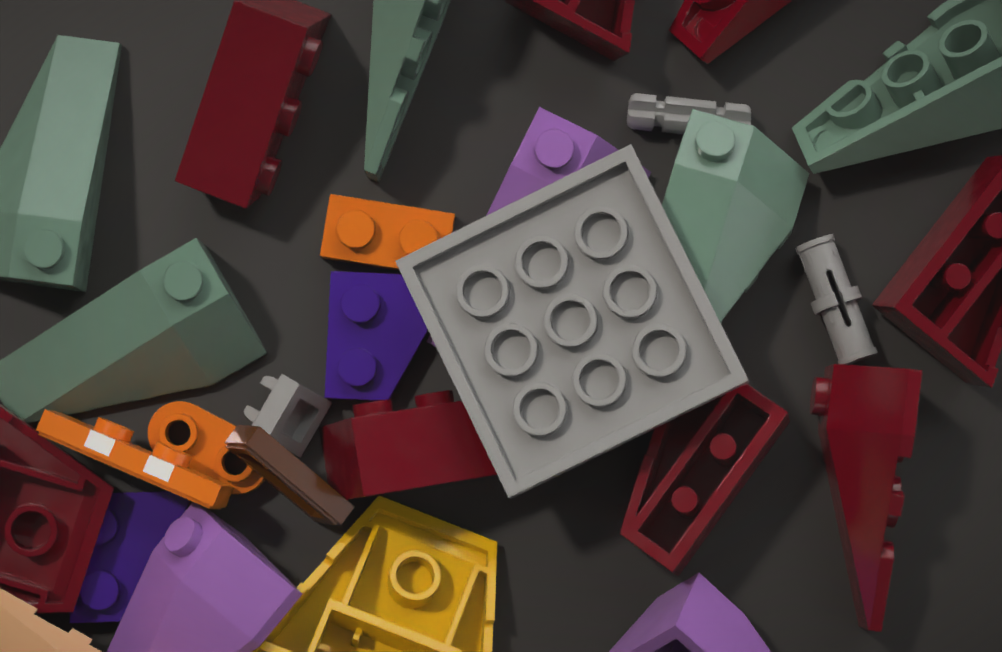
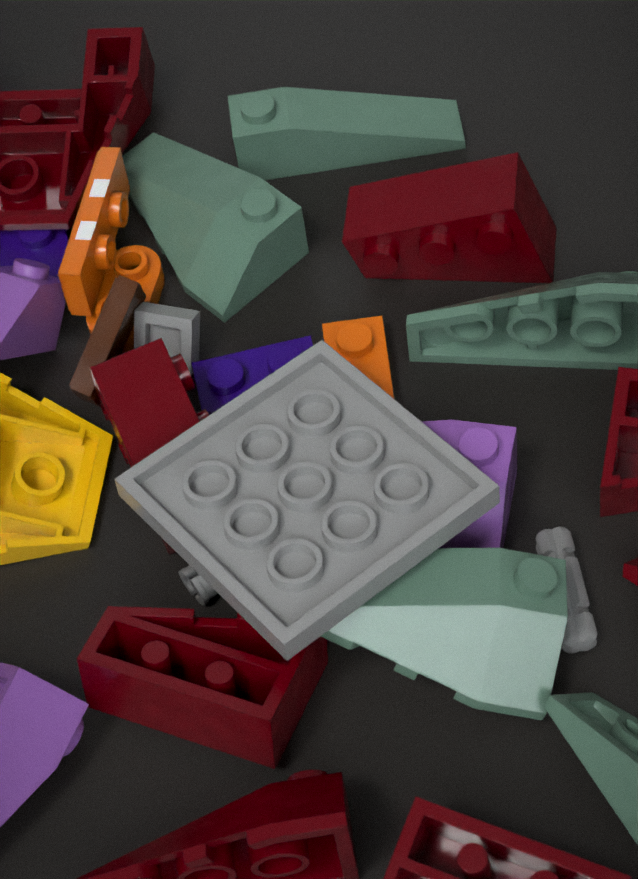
camera: 85 degrees right, 30 degrees down
(822, 263) = (419, 776): light grey pin -> none

